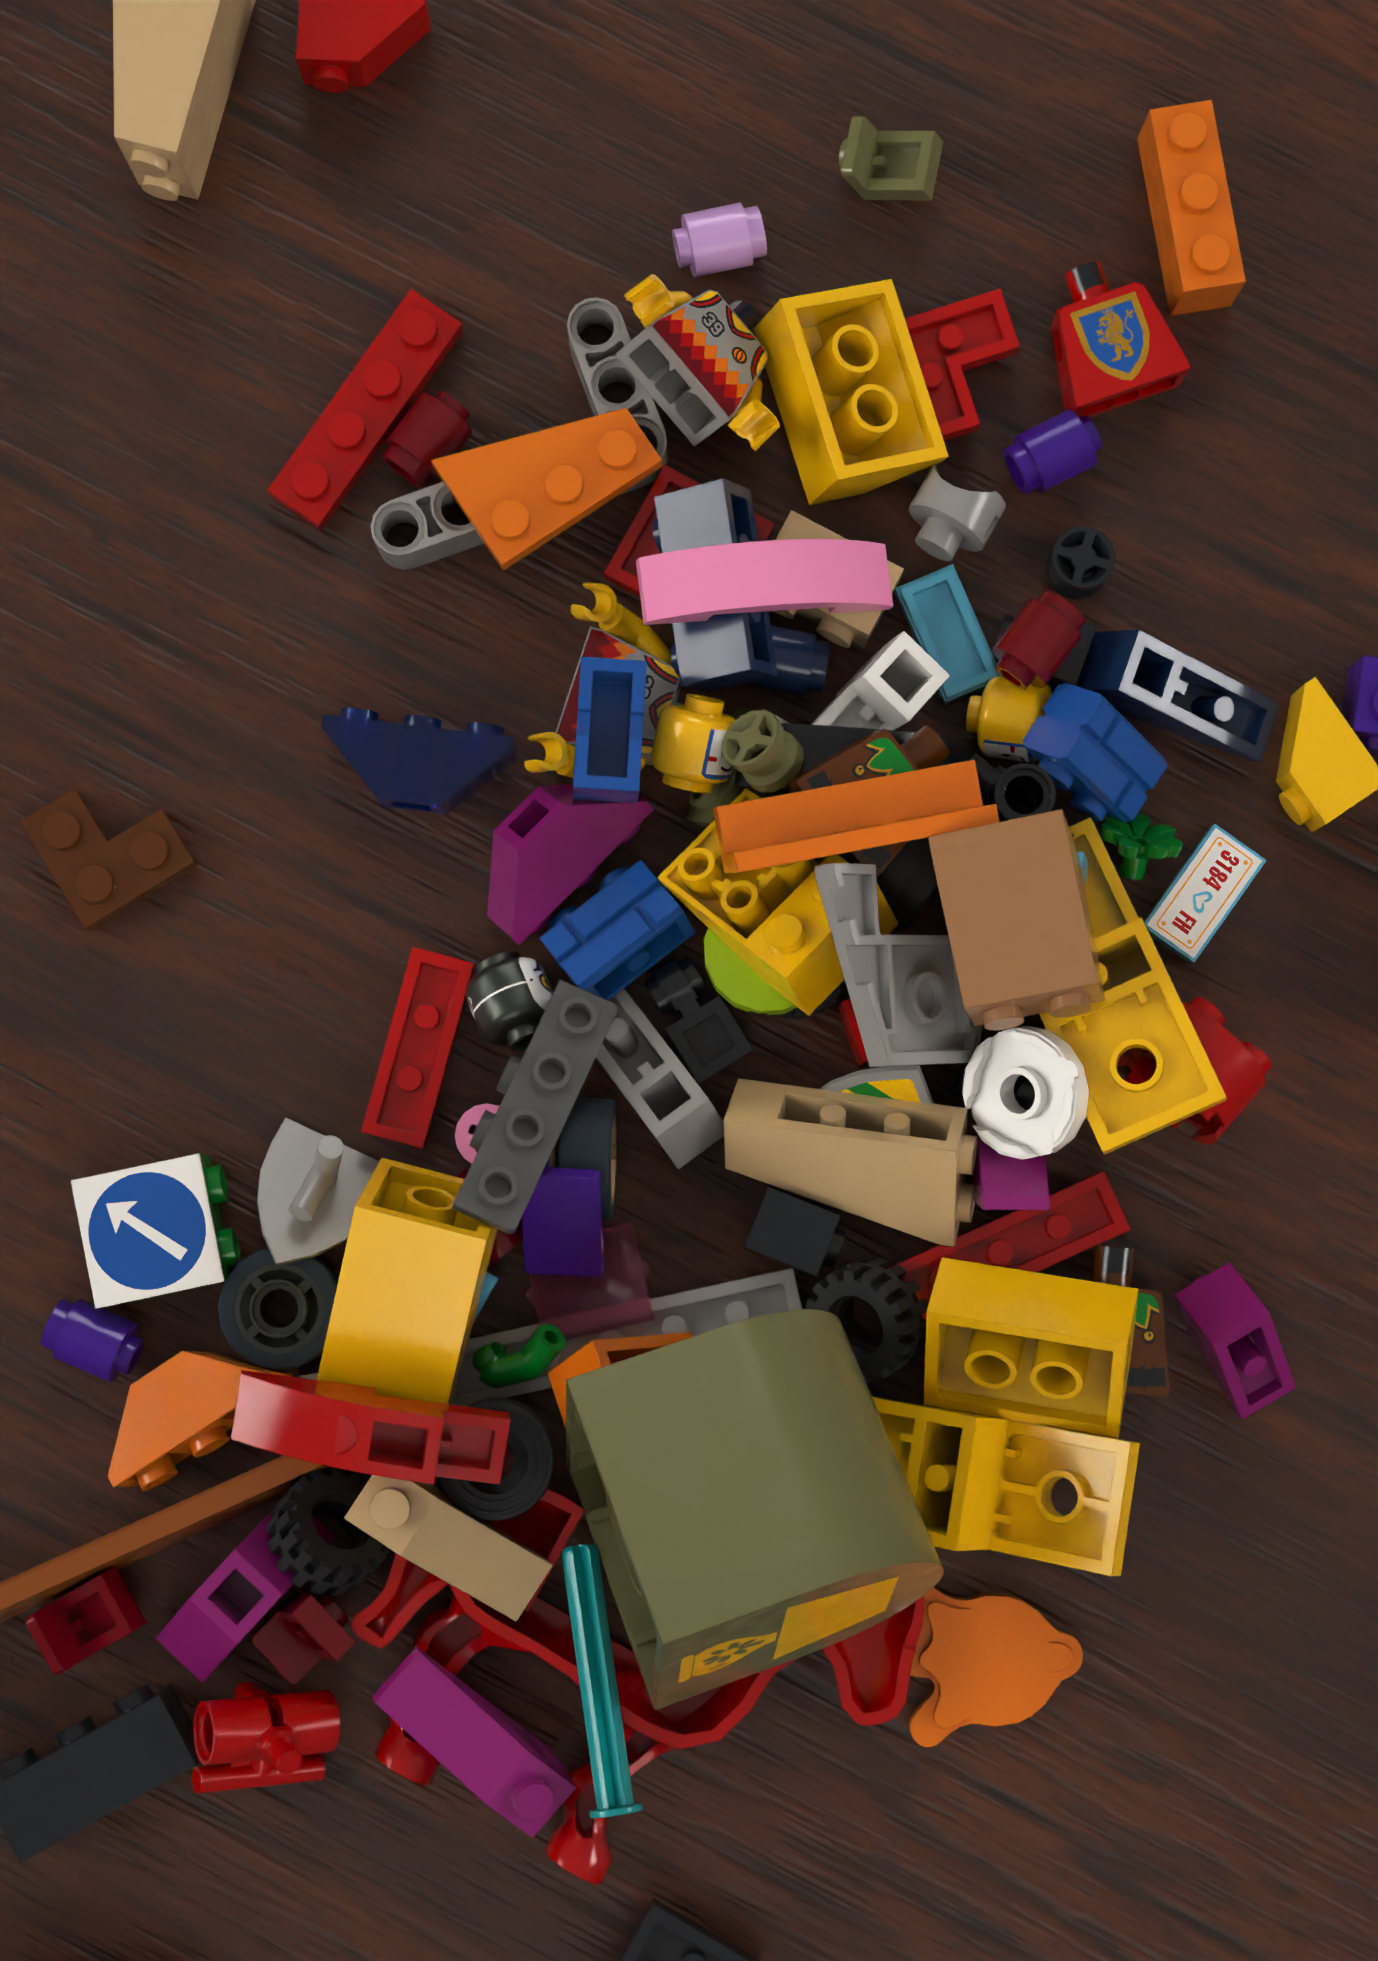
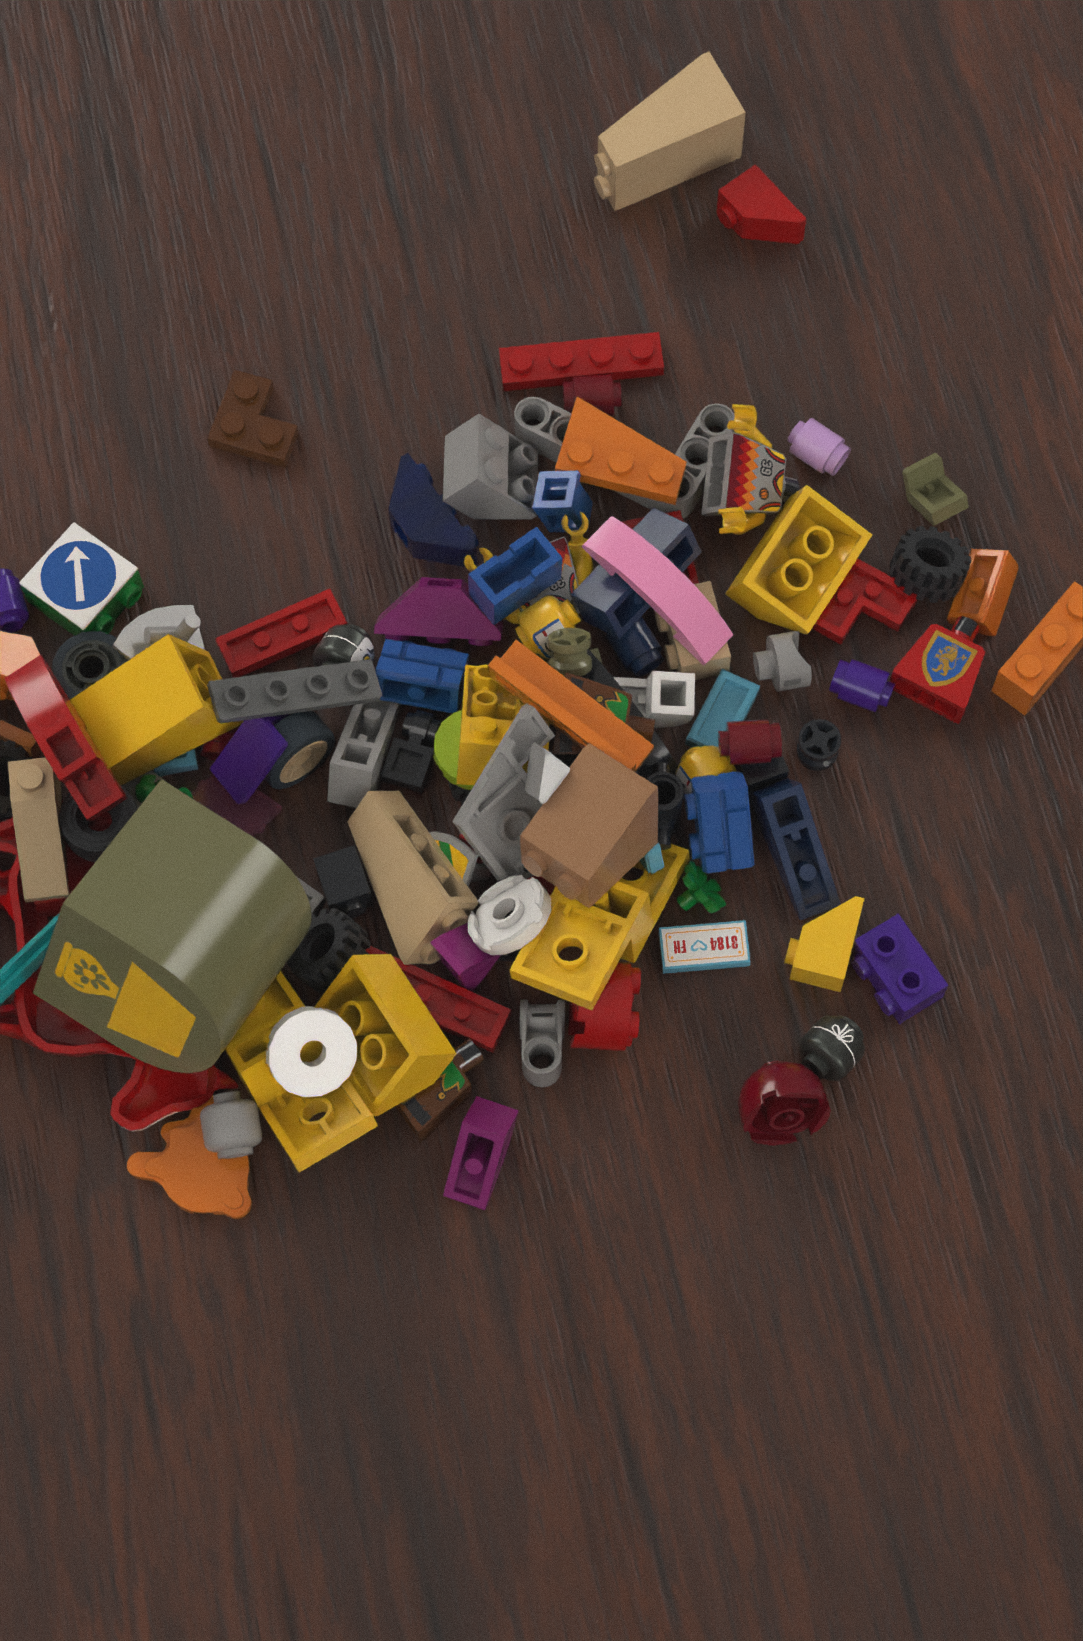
camera: 55 degrees right, 15 degrees down
(427, 640) = (489, 472): none -> light grey slope
(540, 589) = (560, 495): none -> blue brick
(916, 919) = (543, 773): none -> light grey slope
(973, 220) = (922, 579): none -> black tyre
(986, 1599) = (231, 1125): none -> light grey head
(1026, 1456) = (325, 1072): none -> white tile
(1047, 215) = (985, 589): none -> orange slope
(1158, 1166) = (542, 1034): none -> light grey piece

